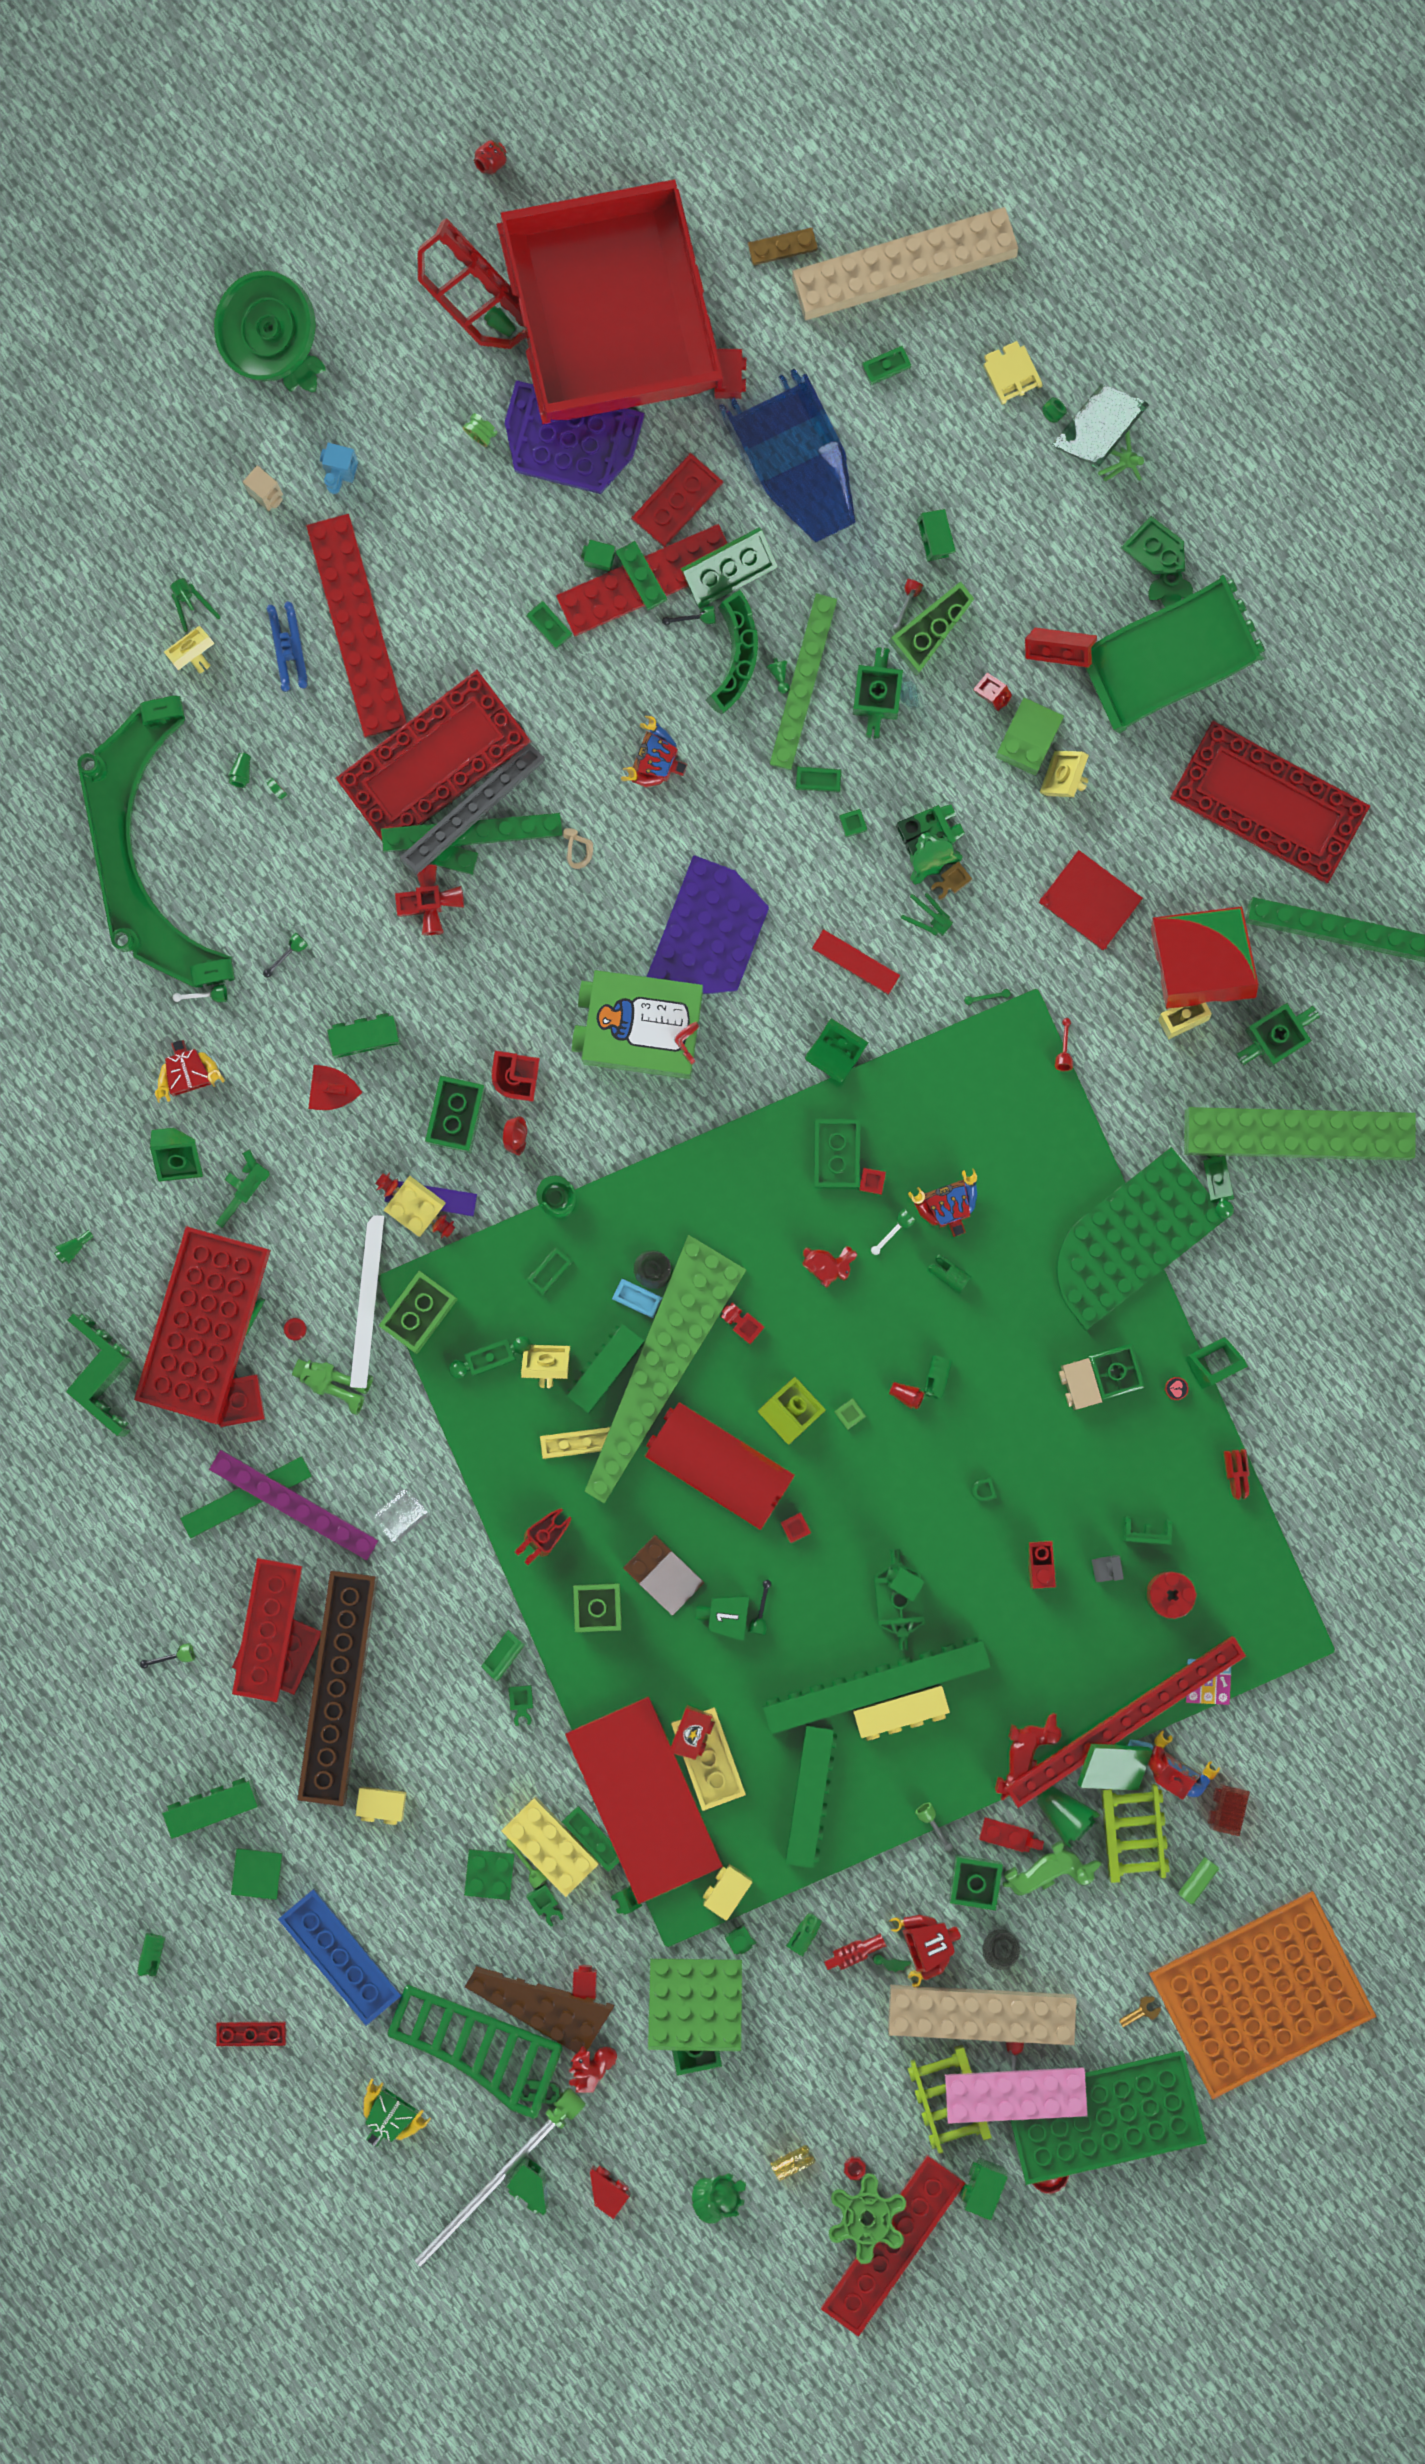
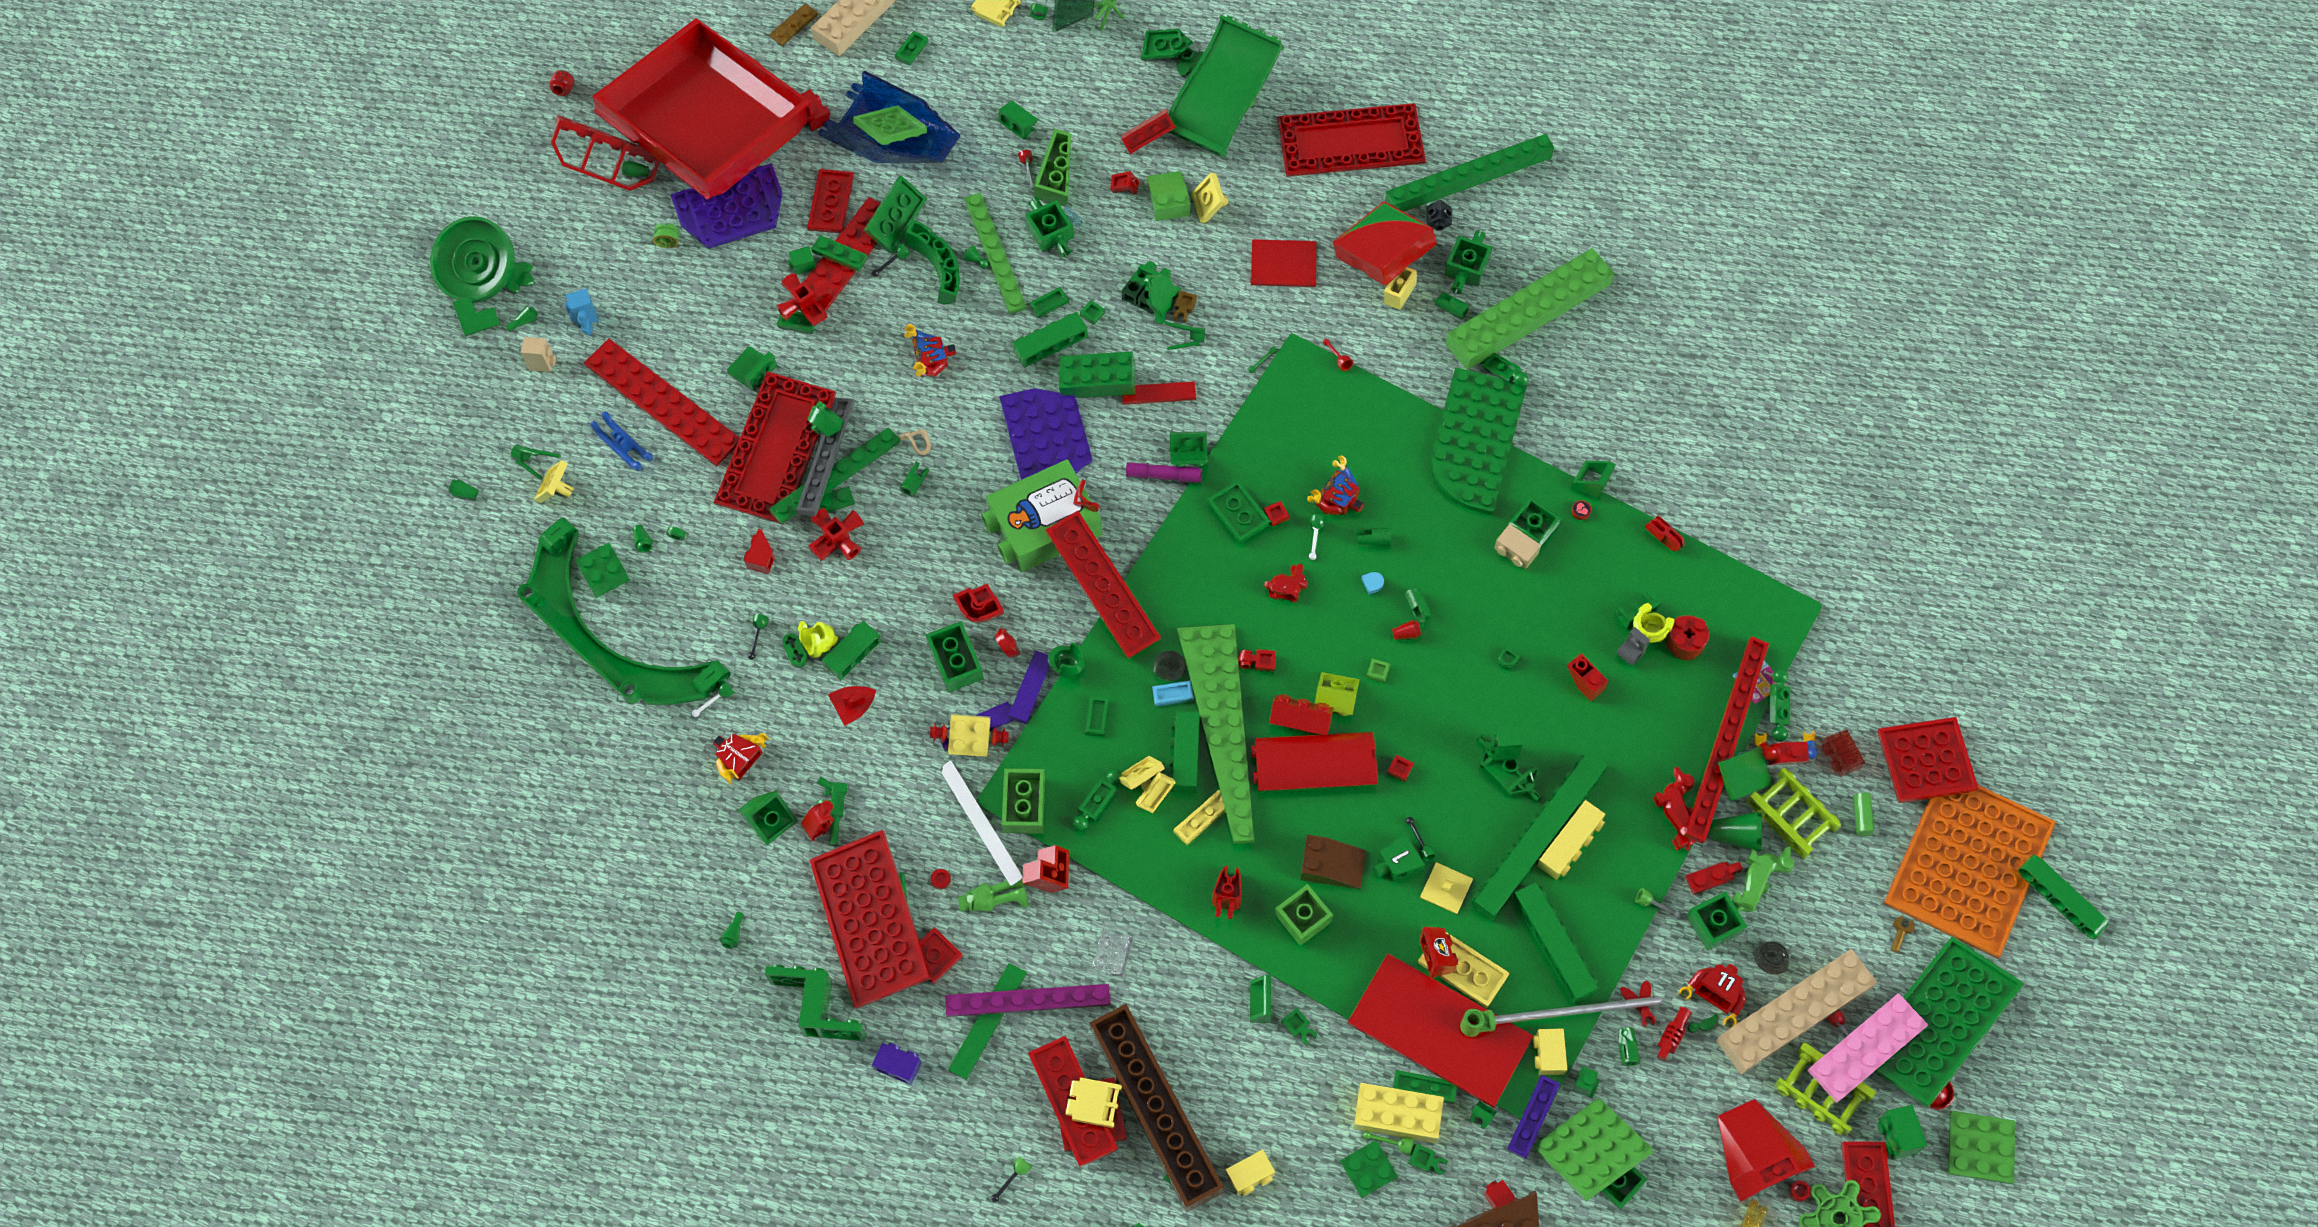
camera: 40 degrees left, 20 degrees down
(101, 593) = (463, 490): none -> green cone
(137, 1480) = (897, 1063): none -> dark purple brick
(180, 781) = (602, 570): none -> green brick
(217, 1194) = (818, 820): none -> red piece
(223, 394) = (470, 320): none -> green tile
(281, 1647) = (1093, 1102): none -> light yellow plate
(283, 429) = (526, 316): none -> green cone
(317, 997) = (798, 648): none -> green beam
(339, 1002) = (817, 639): none -> neon yellow helmet
(344, 869) = (760, 555): none -> red slope
(398, 1397) = (1049, 871): none -> red brick
(468, 648) = (752, 367): none -> green bracket
(493, 771) = (824, 420): none -> green cone
(507, 1195) = (1030, 688): none -> dark purple tile
(542, 893) = (913, 481): none -> green hinge
(545, 1391) = (1155, 792): none -> light yellow tile
(567, 610) = (804, 299): none -> red brick
(644, 1143) = (1103, 584): none -> red plate
(668, 1935) = (1533, 1117): none -> dark purple tile
(688, 1826) = (1486, 1020): none -> flat silver piece
(739, 1411) = (1301, 714): none -> red brick
(752, 1671) = (1446, 888): none -> light yellow piece
(786, 827) = (1050, 339): none -> green brick
(792, 456) = (890, 125): none -> bright green plate
(794, 1056) = (1163, 472): none -> magenta piece
(805, 902) = (1097, 374): none -> green brick
(847, 2109) = (1759, 1150): none -> red wedge
(850, 1903) = (1645, 991): none -> red piece
(913, 1320) = (1373, 582): none -> medium azure tile
(1050, 2248) = (1981, 1147): none -> bright green plate
(1143, 1560) = (1652, 624): none -> neon yellow helmet
(1207, 1721) = (1779, 705): none -> green plate
(1226, 1076) = (1452, 305): none -> green hinge
(1289, 961) = (1439, 215): none -> black brick
(1304, 1873) = (1927, 760): none -> red plate
(1318, 2090) = (2063, 897): none -> green beam

